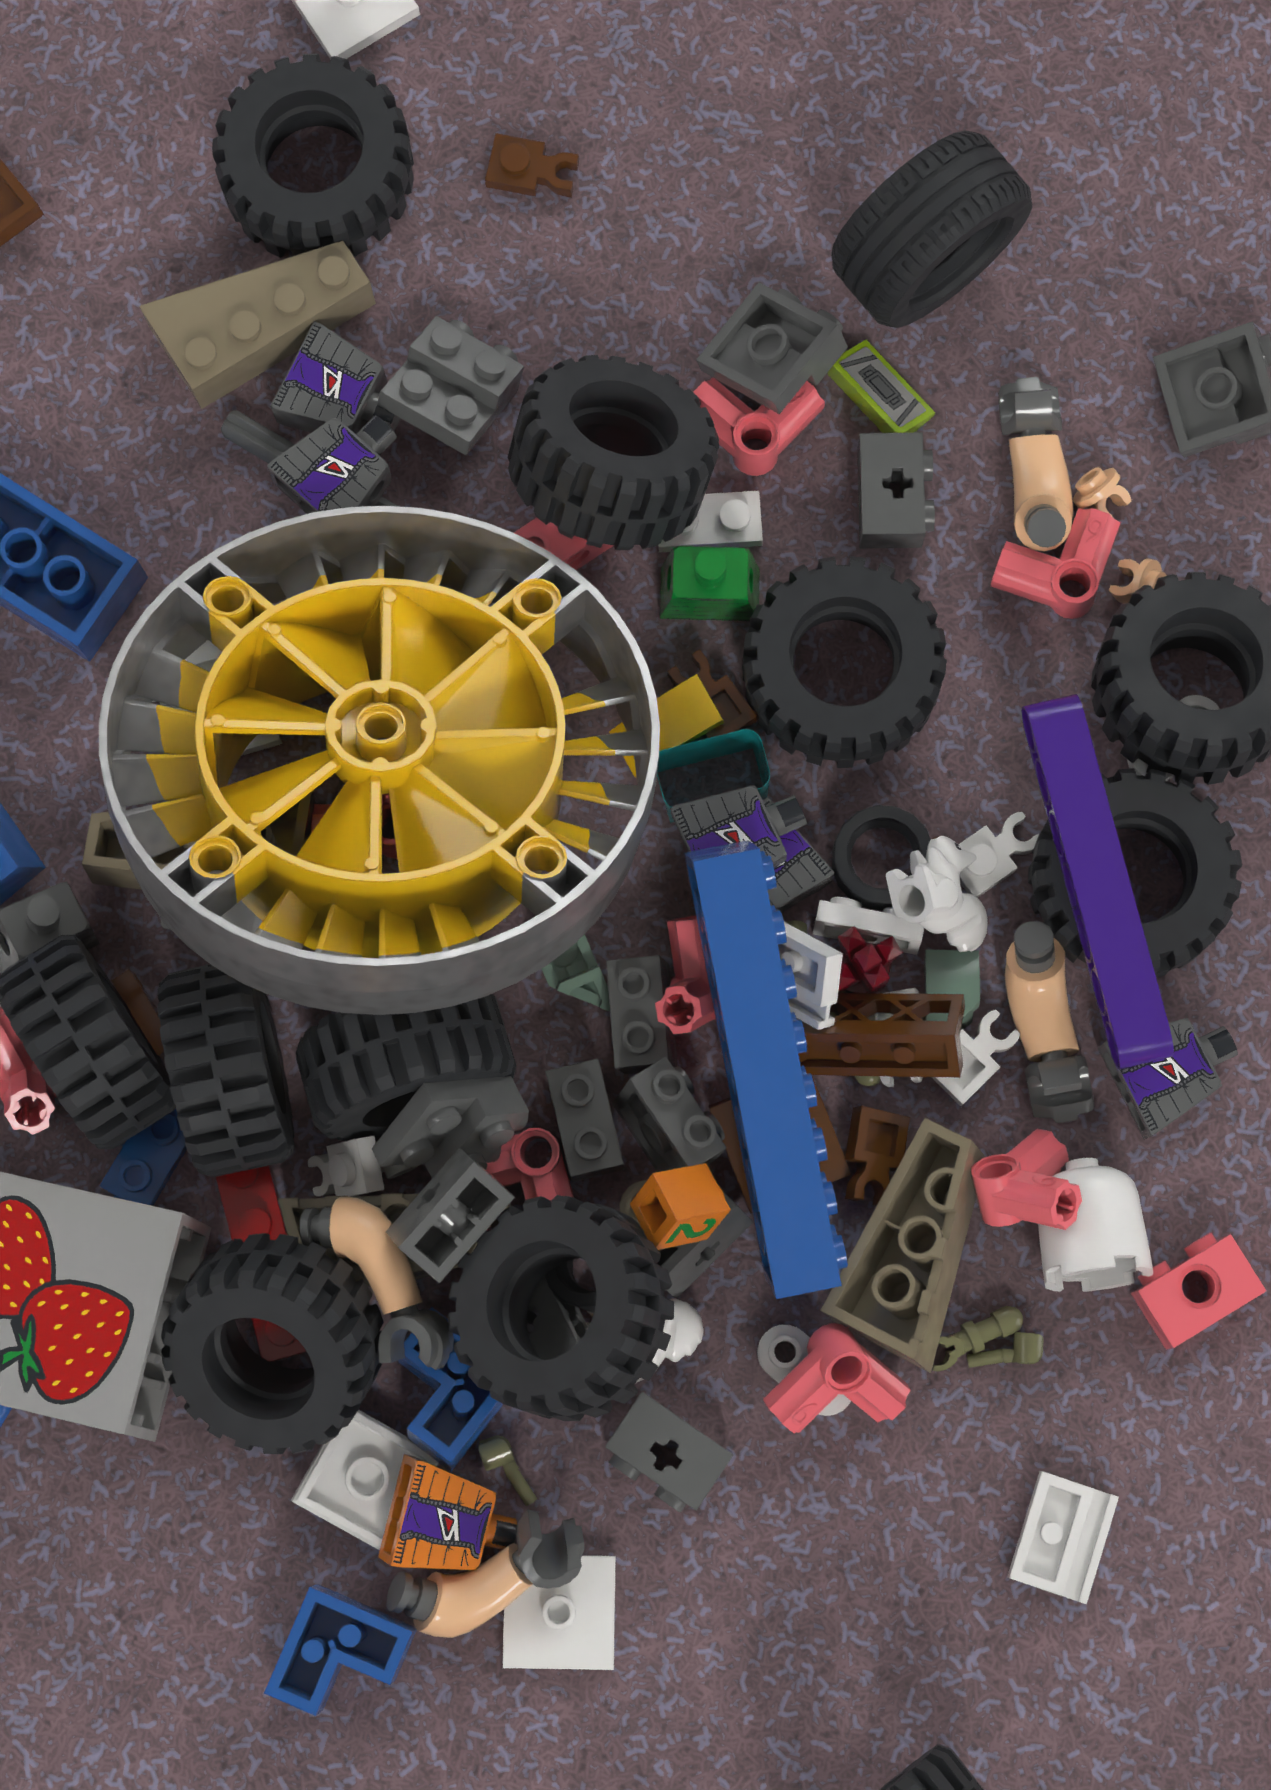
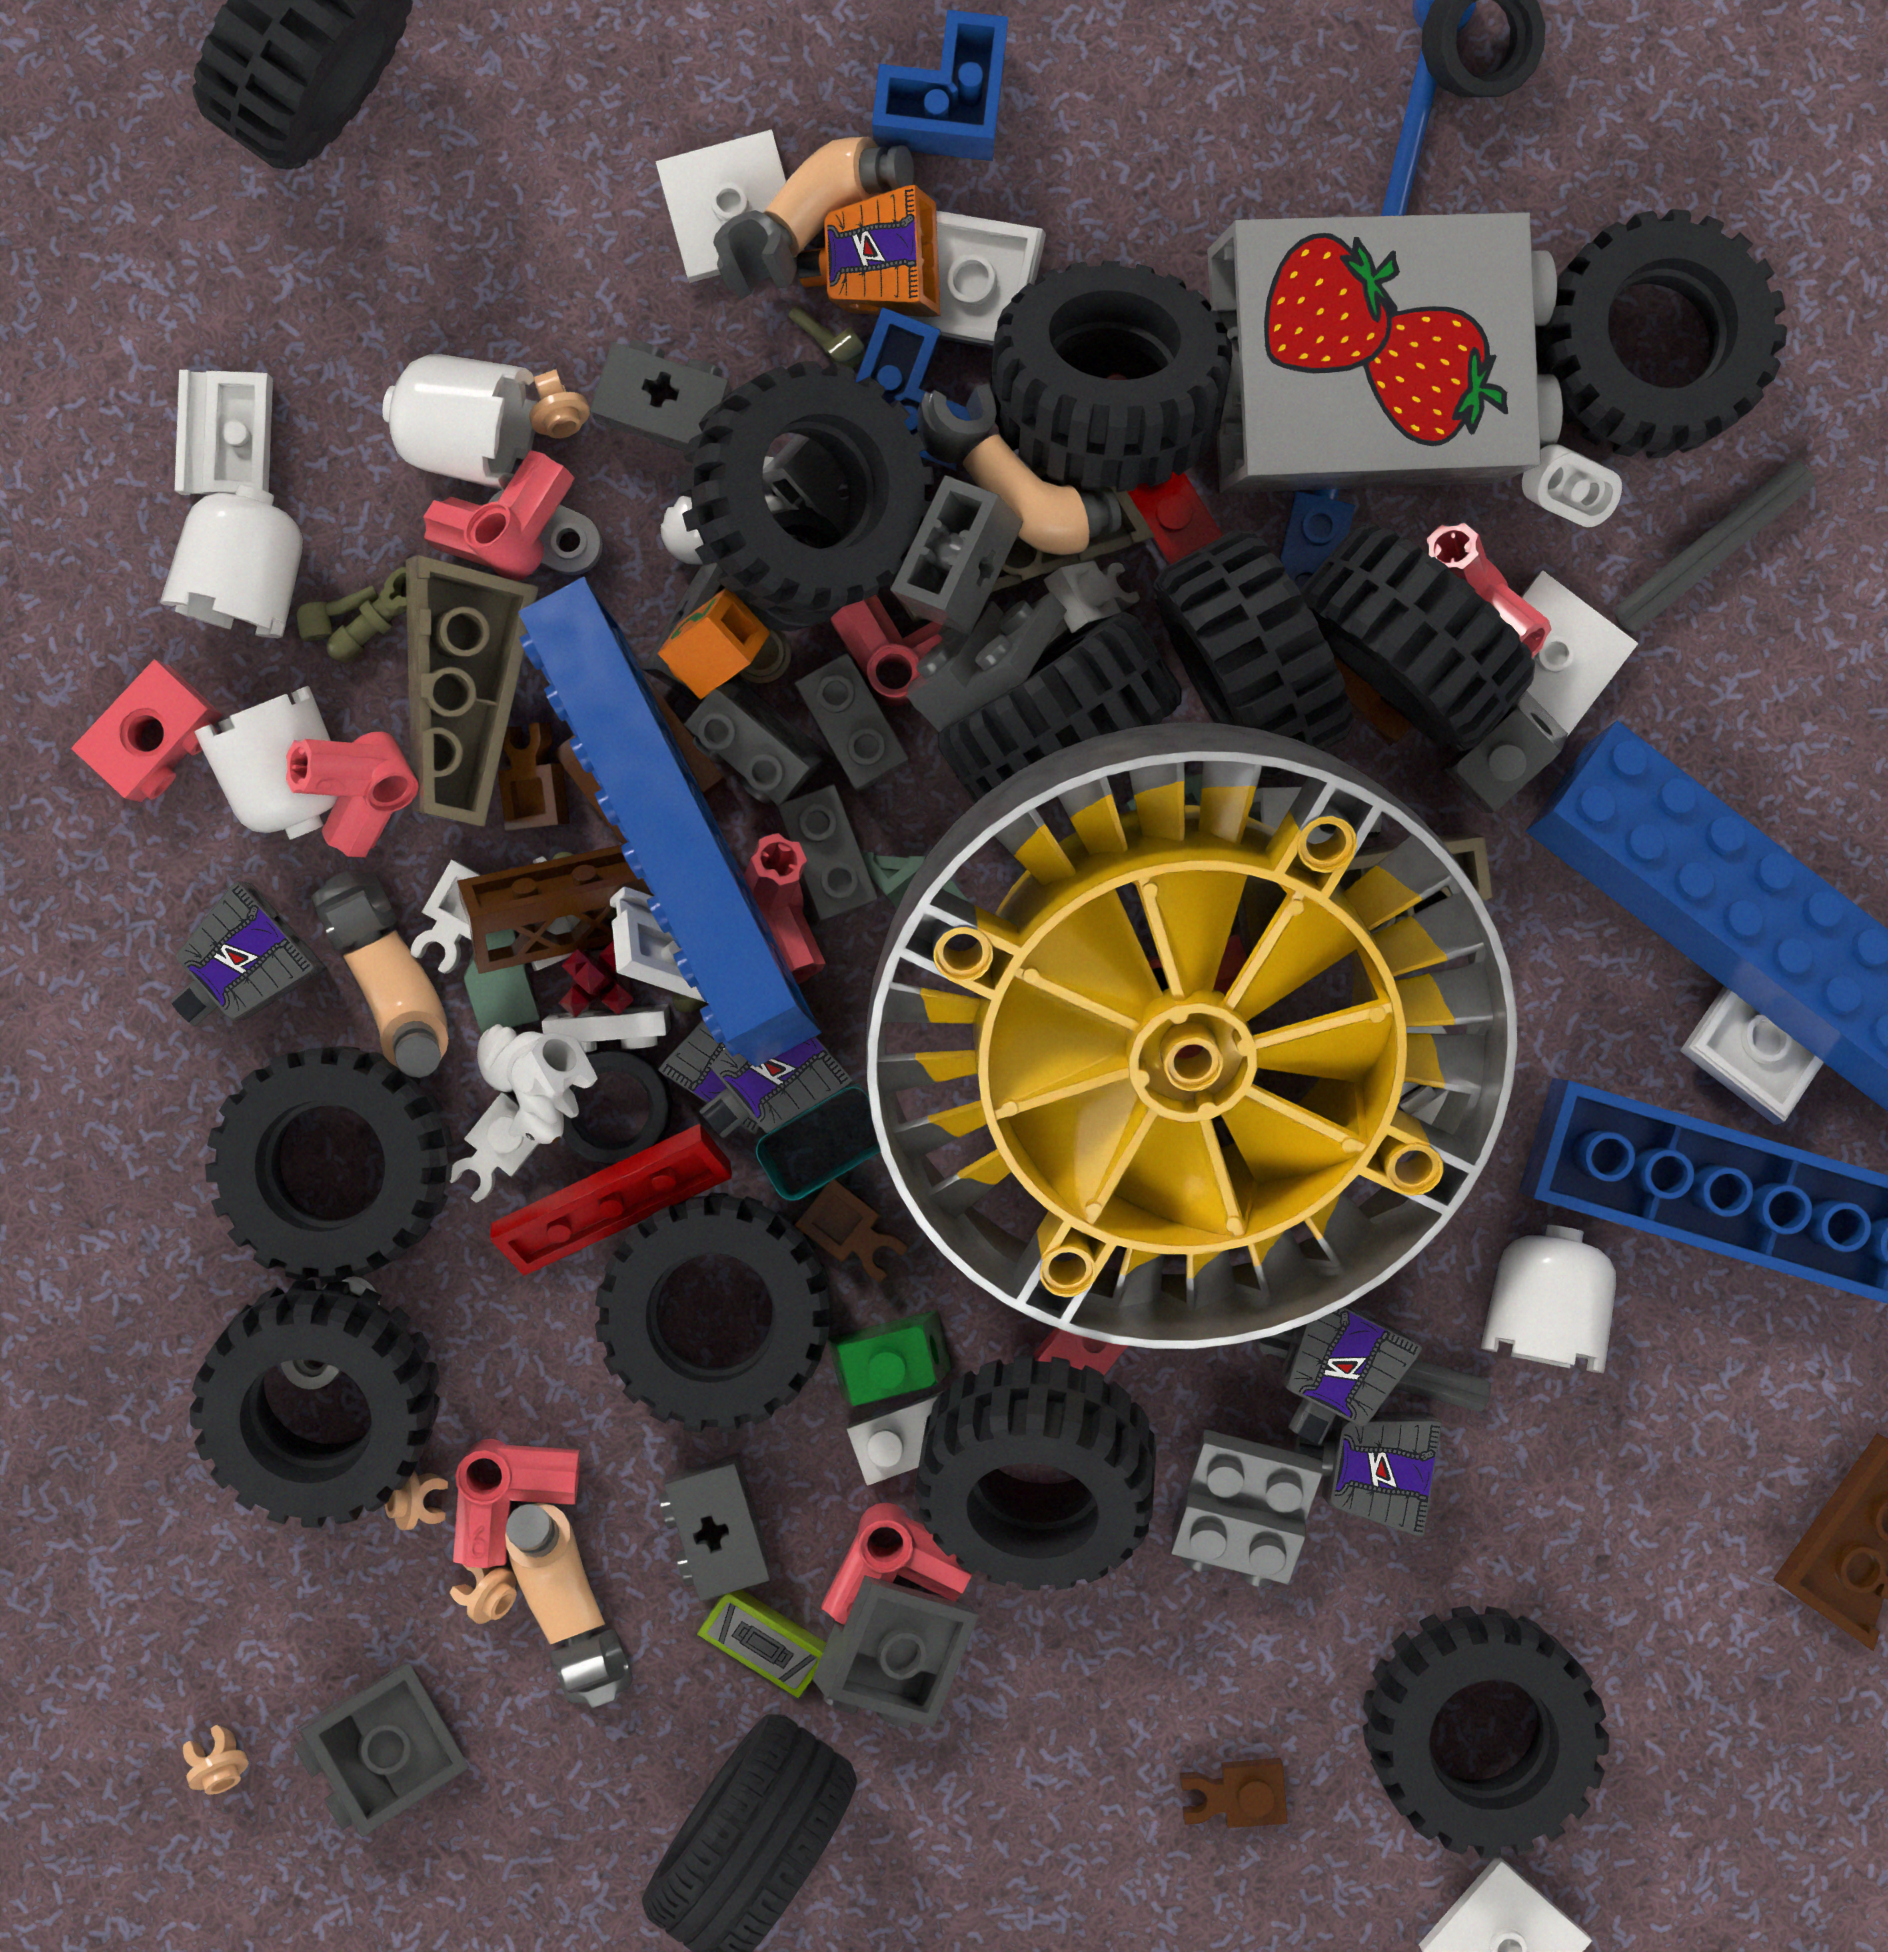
camera: 160 degrees right, 10 degrees up
(148, 477) = (1553, 1300): none -> white cylinder
(256, 318) = (1490, 1523): dark tan wedge -> none
(683, 715) = (872, 1202): yellow slope -> none
(761, 1467) = (558, 411): none -> light nougat plate
(848, 1483) = (461, 418): none -> white cylinder
(905, 777) = (611, 1200): none -> red plate
(1078, 1413) = (236, 562): none -> white cylinder
(1097, 882) = (359, 1133): dark purple beam -> none

